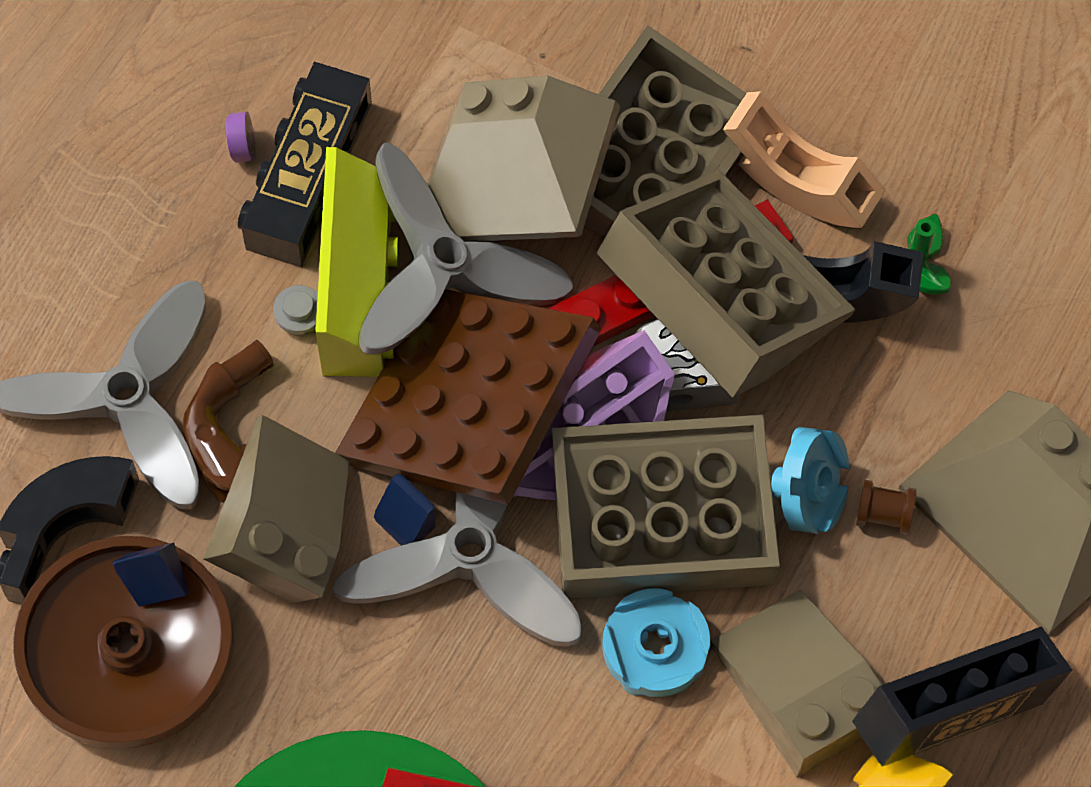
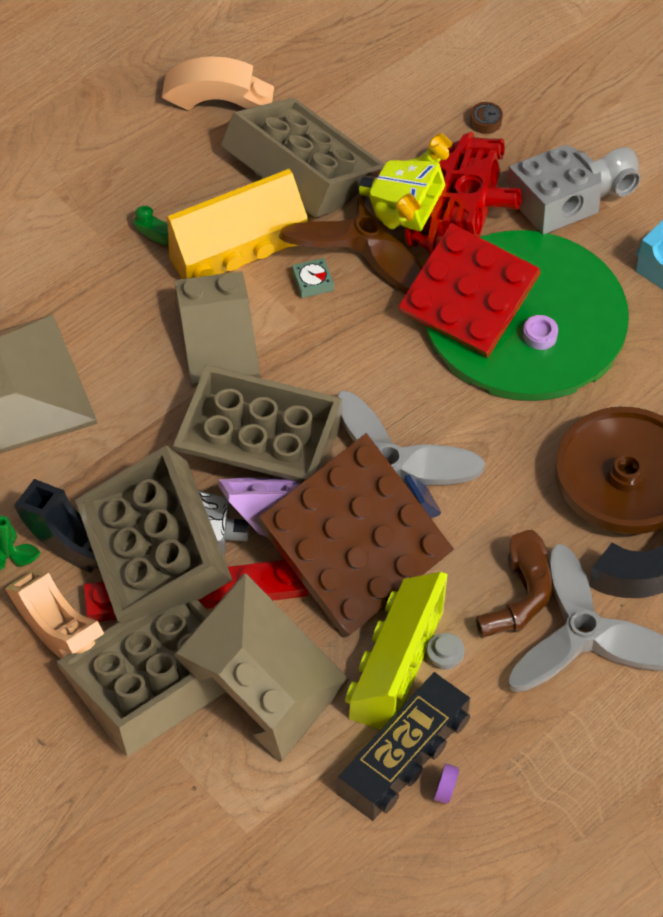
camera: 160 degrees left, 10 degrees down
(152, 574) = (600, 493): dark blue slope -> none
(282, 514) = (504, 502): dark tan slope -> none
(469, 266) = (340, 627): light grey piece -> none
(642, 670) = (298, 360): medium azure plate -> none
(811, 480) = (148, 425): medium azure plate -> none
(886, 507) = (114, 403): reddish brown bush -> none
(961, 695) = (134, 265): black brick -> none

